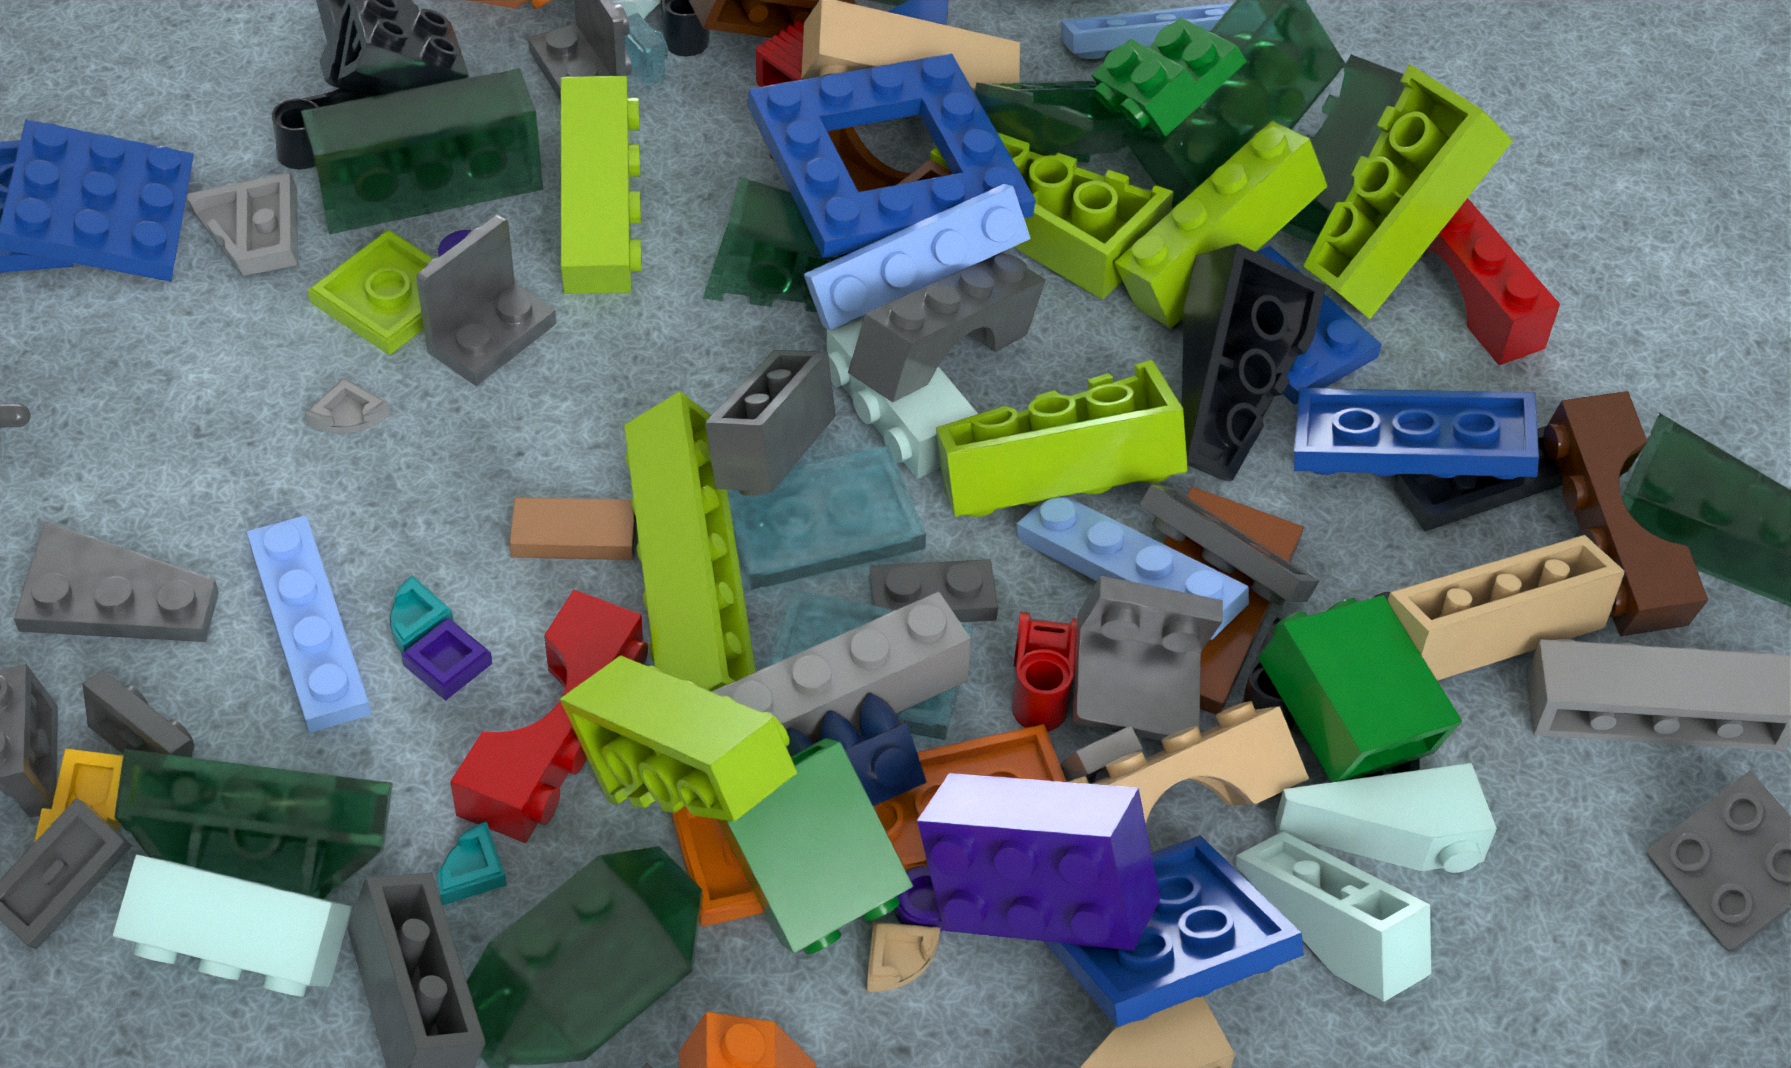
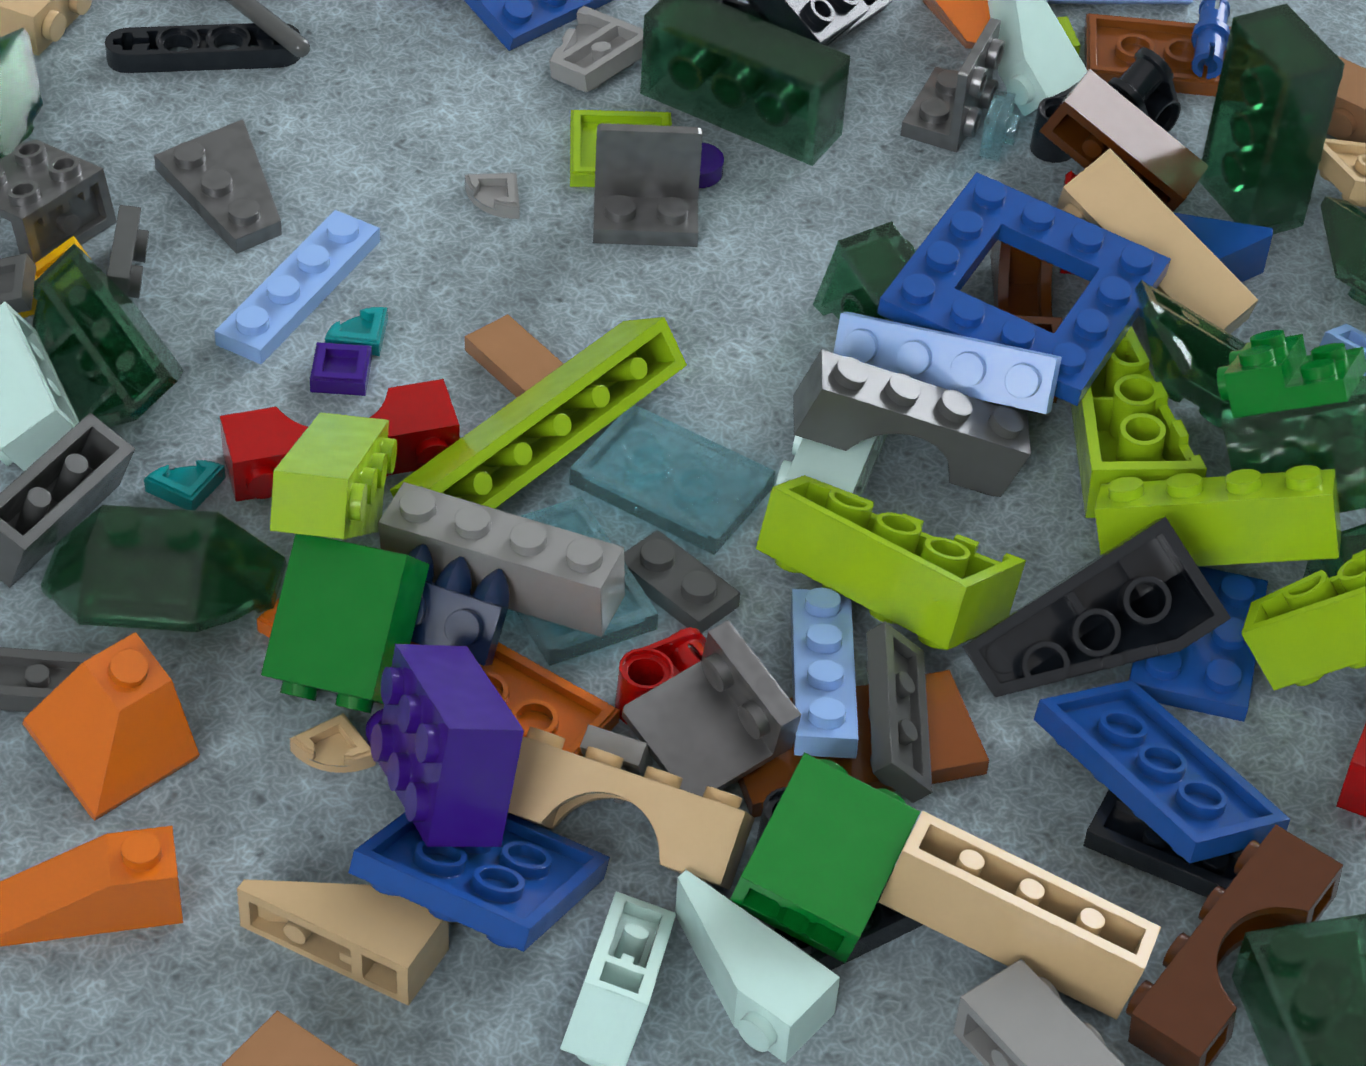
camera: 50 degrees right, 5 degrees down
(597, 185) = (828, 175): lime wedge -> none
(770, 421) = (705, 385): dark grey brick -> none

